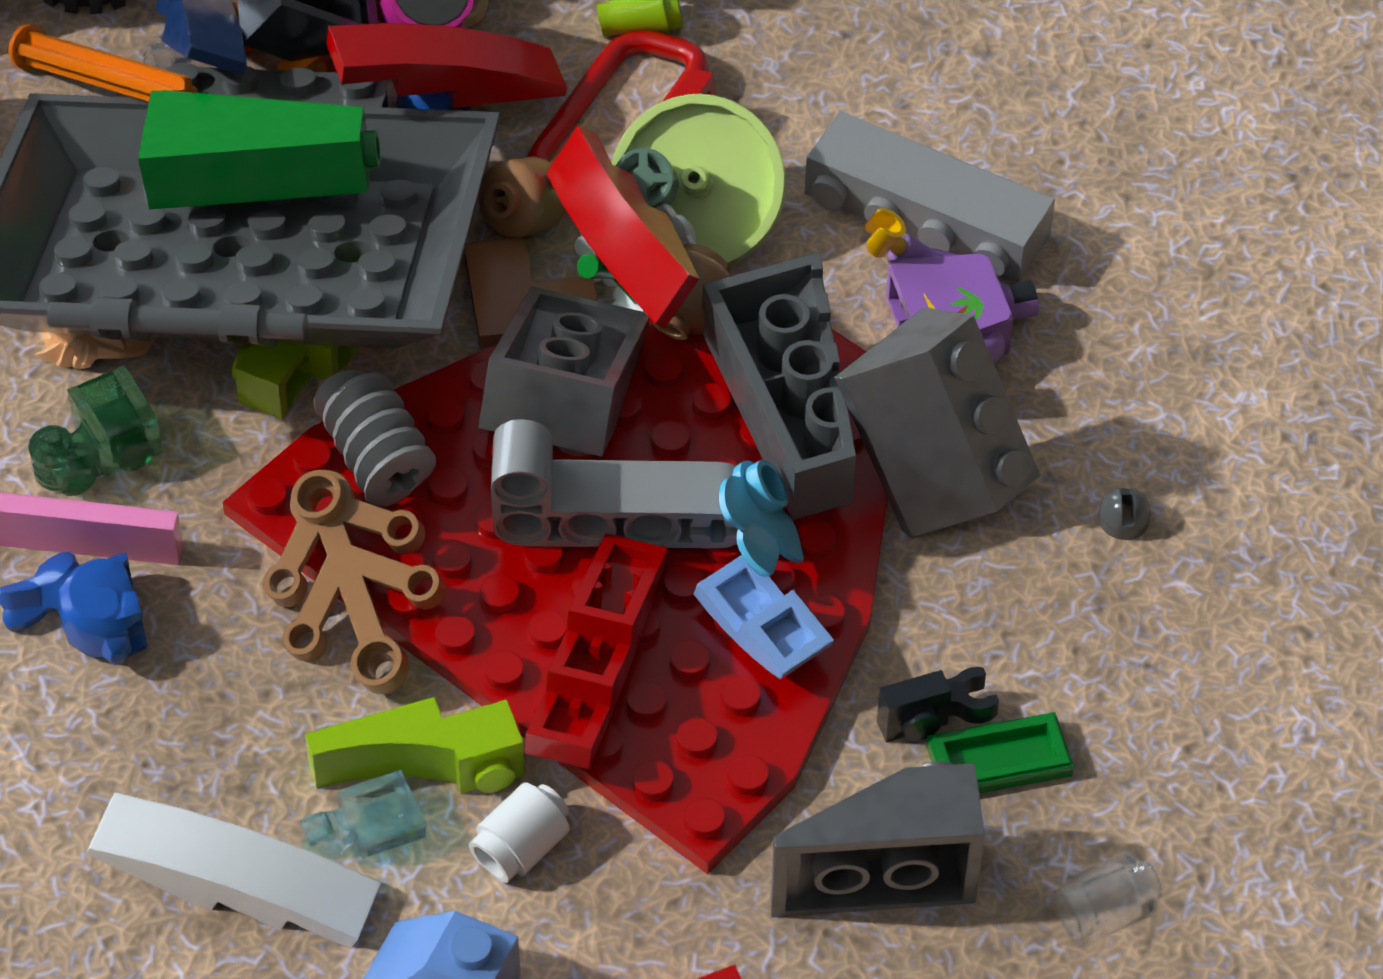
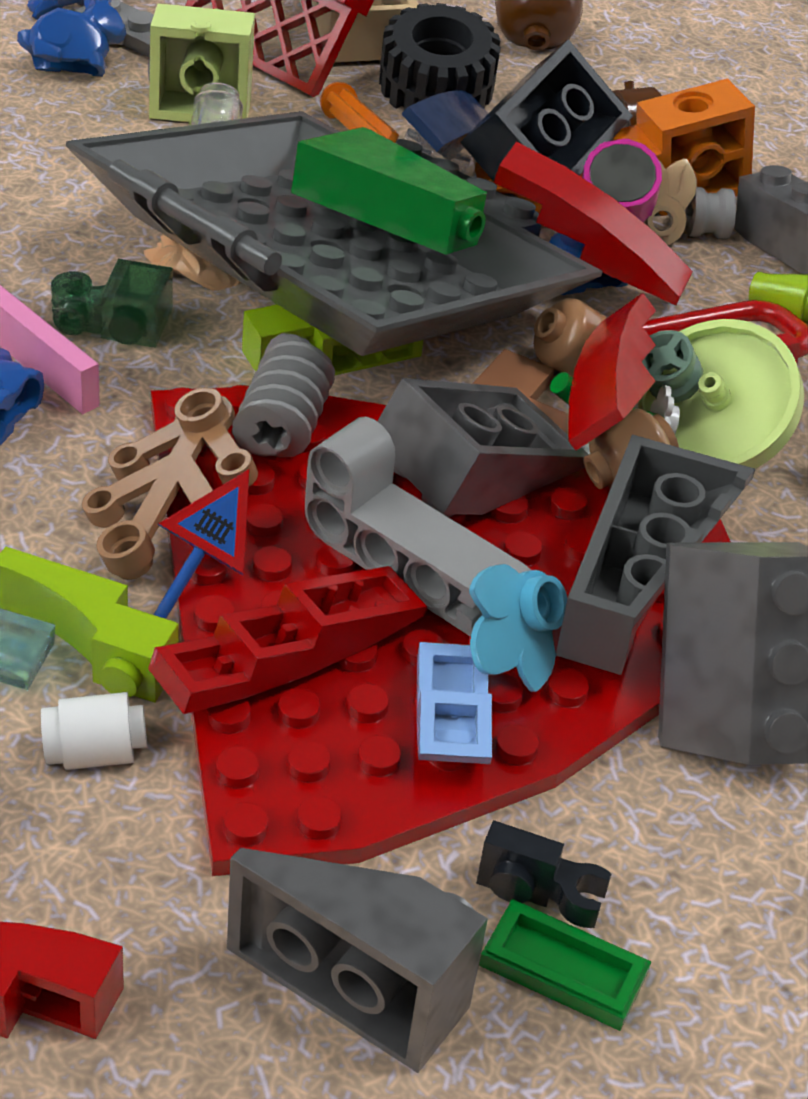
camera: 35 degrees right, 10 degrees down
(446, 599) = (214, 528): none -> piece

